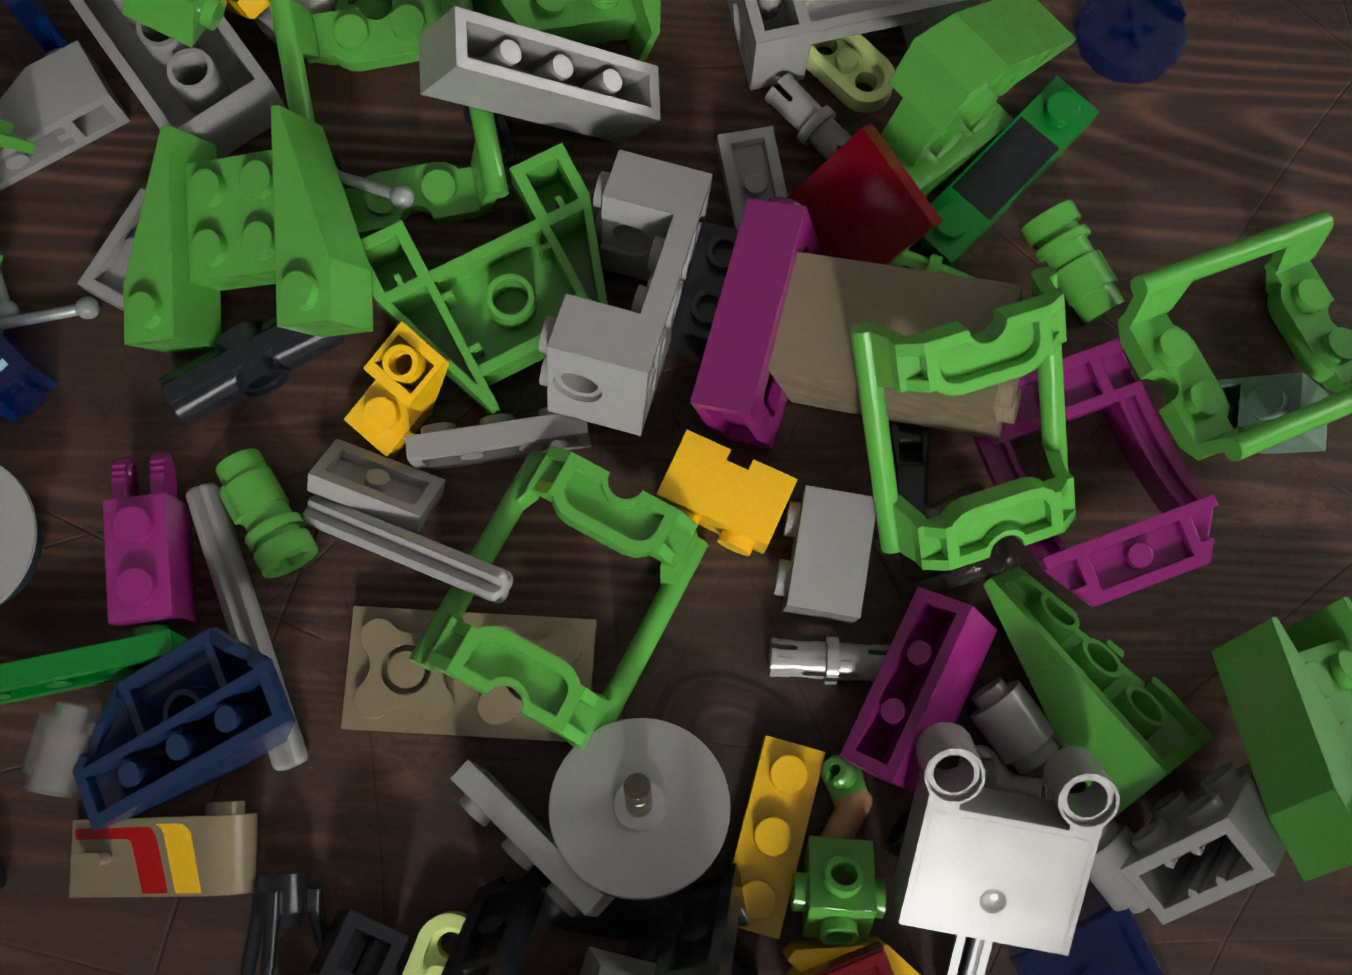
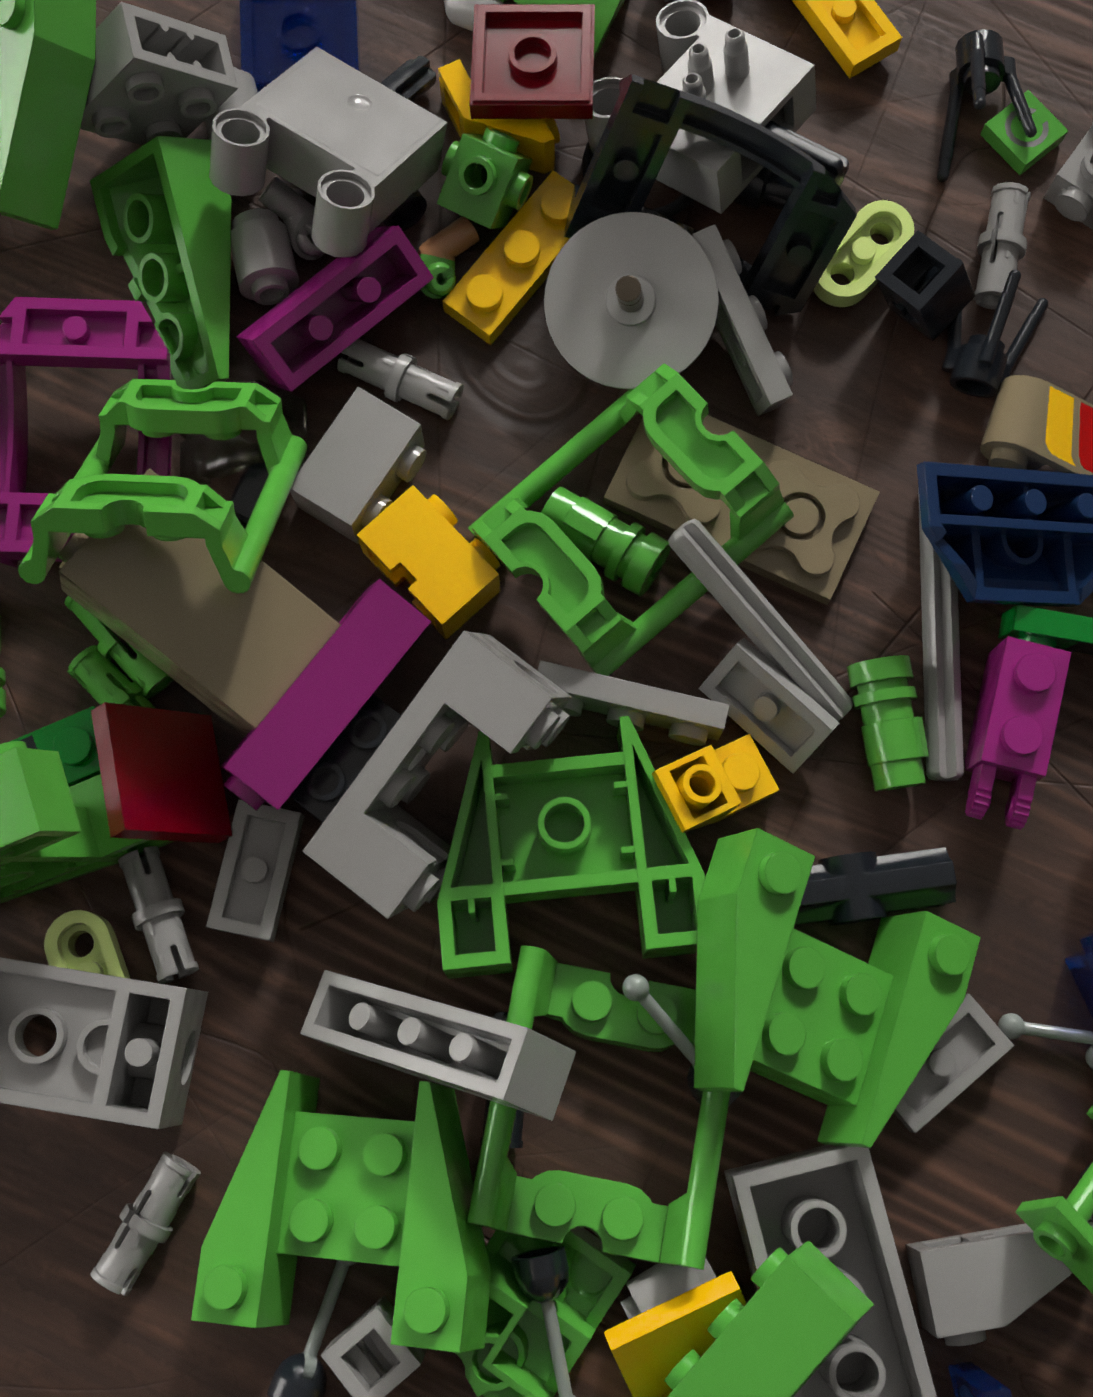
camera: 155 degrees left, 0 degrees up
(578, 577) = (608, 541): none -> bright green axle

